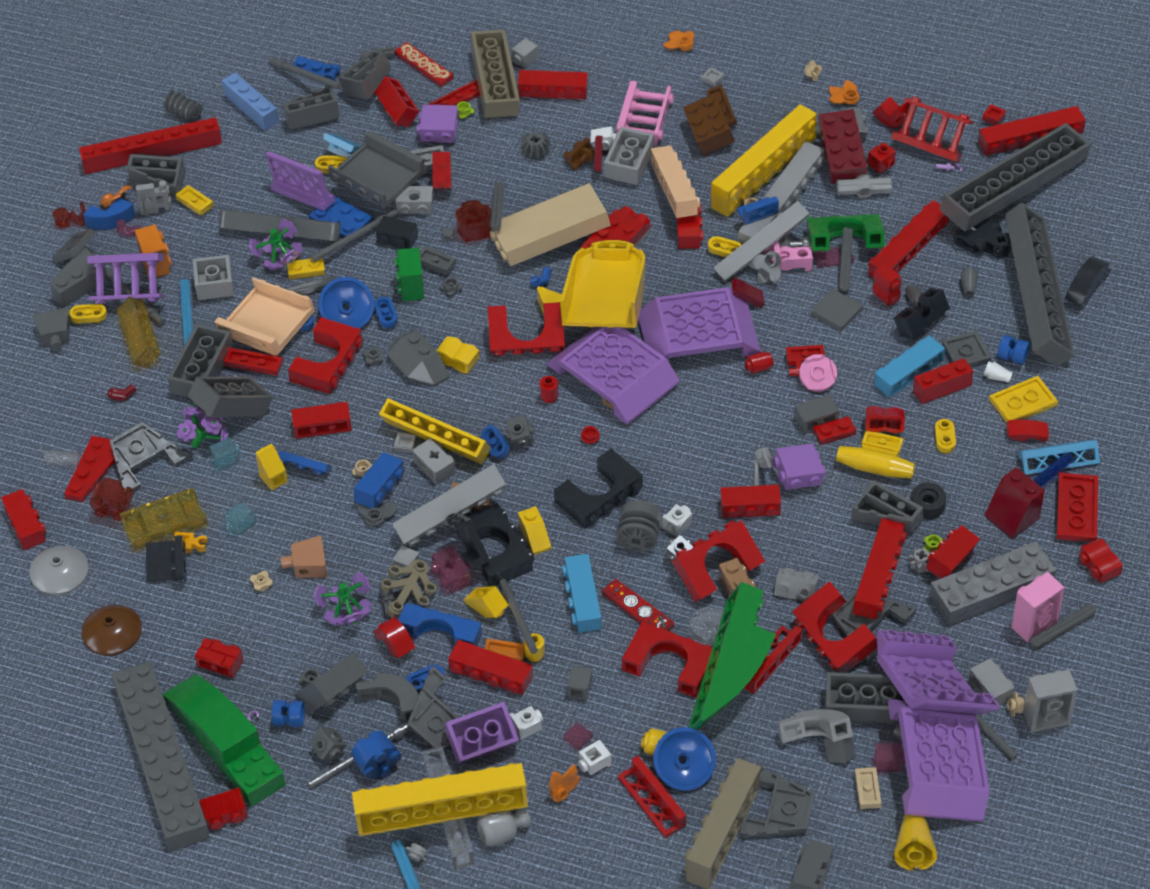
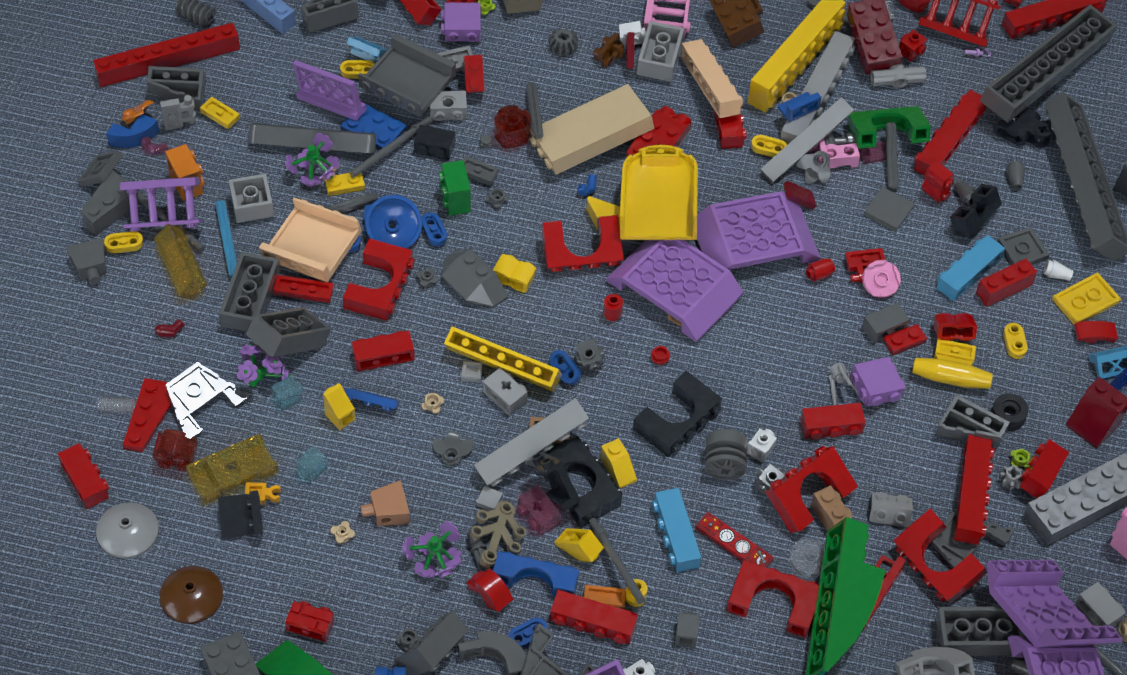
camera: 10 degrees left, 5 degrees up
(63, 218) = (84, 137): clear red leg -> none
(378, 480) = (452, 416): blue brick -> none
(1013, 349) = (1071, 246): blue wheel -> none

